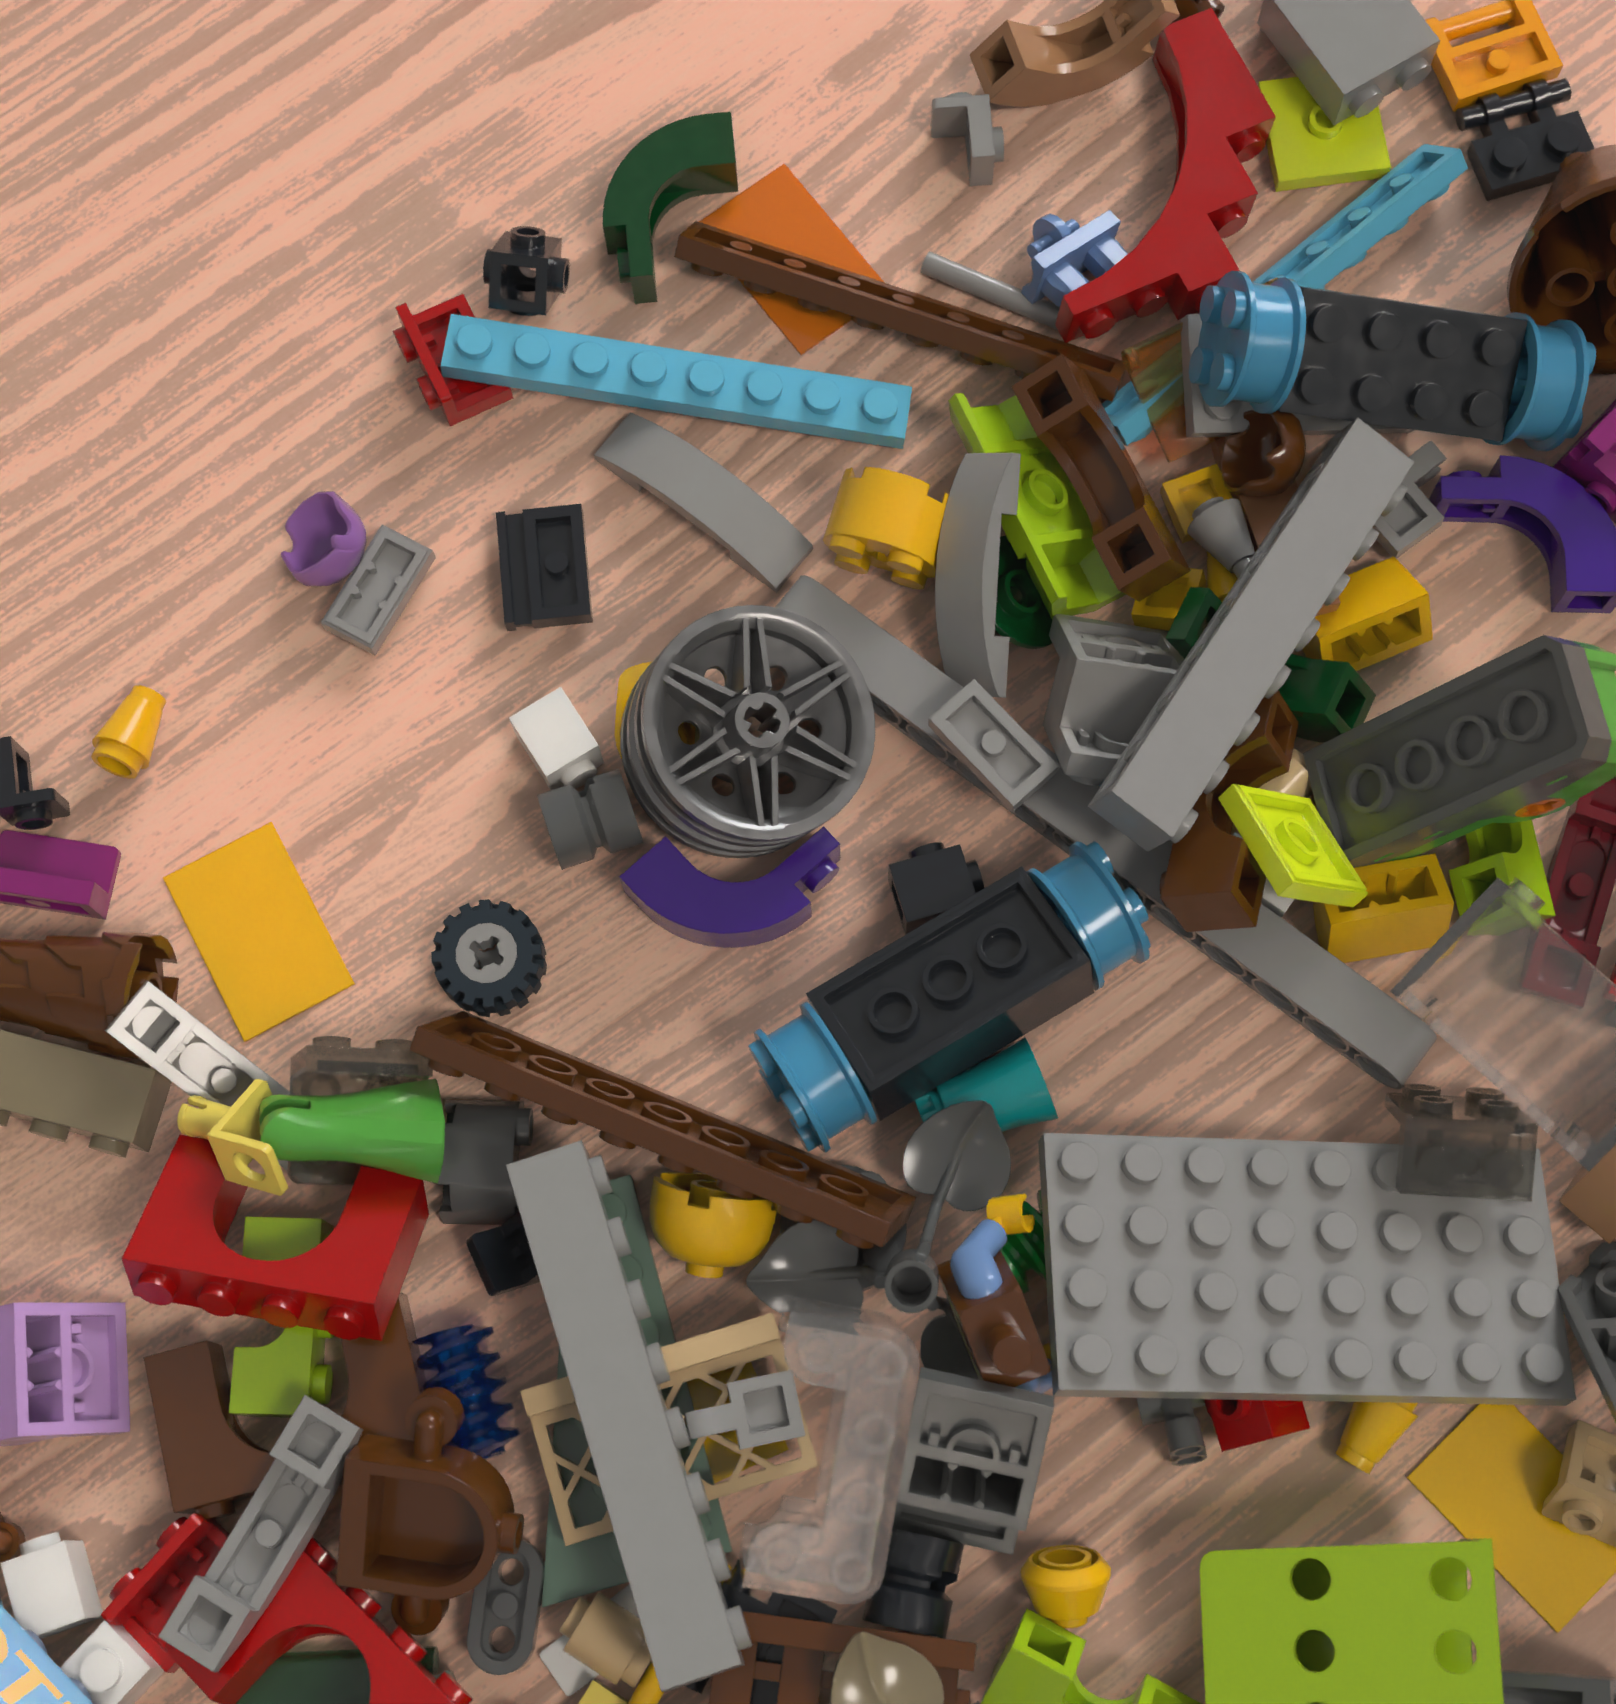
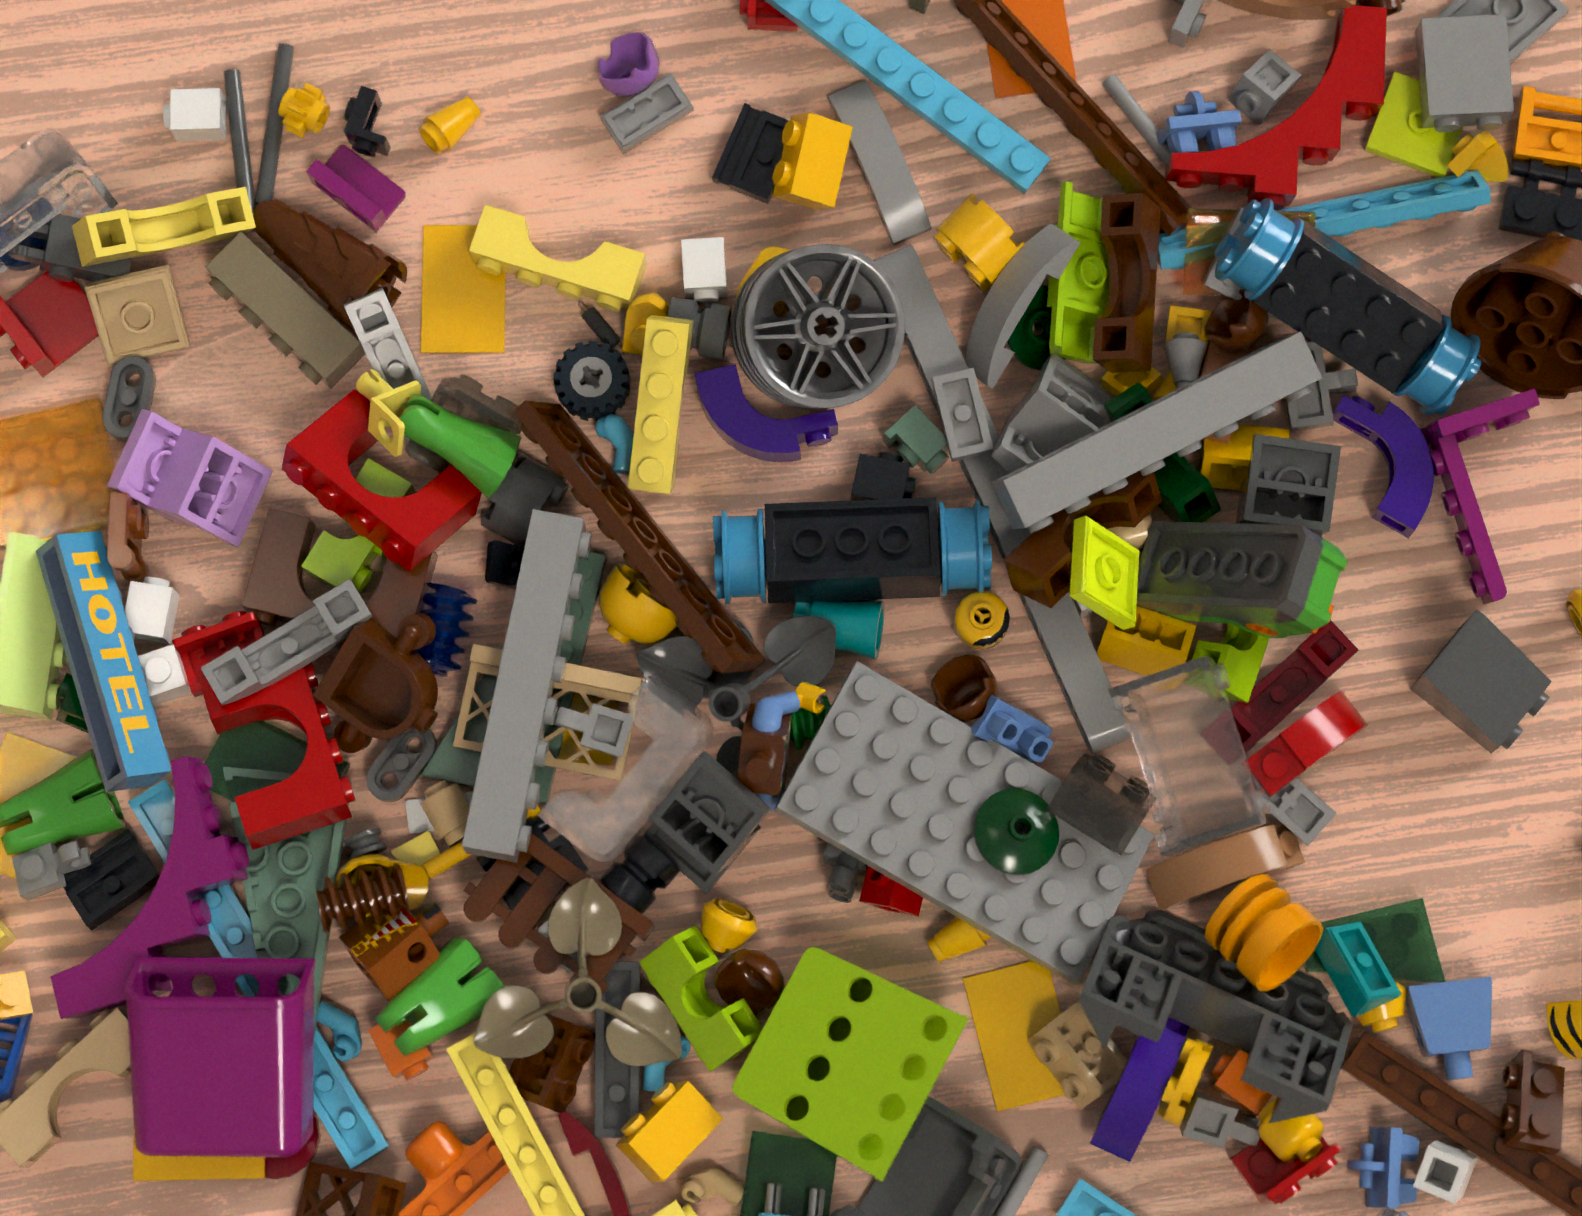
camera: 30 degrees right, 5 degrees up
(435, 816) = (607, 275): none -> light yellow arch
(462, 884) = (600, 327): none -> dark grey piece
(523, 851) = (636, 317): none -> yellow plate
(569, 1010) = (621, 436): none -> medium azure arm
(597, 939) = (659, 404): none -> light yellow arch
(621, 537) = (811, 161): none -> yellow brick
(950, 811) = (918, 441): none -> sand green brick
(1117, 176) = (1263, 86): none -> light grey bracket
(1140, 1639) = (752, 977): none -> reddish brown hair
(1166, 974) = (976, 634): none -> yellow head
(1192, 1091) = (964, 687): none -> reddish brown hair
(1289, 1112) = (1014, 730): none -> medium blue hips
(1362, 1263) = (1003, 845): none -> dark green dish
(1422, 121) = (1480, 154): none -> yellow plate
(1450, 614) = (1289, 483): none -> dark grey bracket

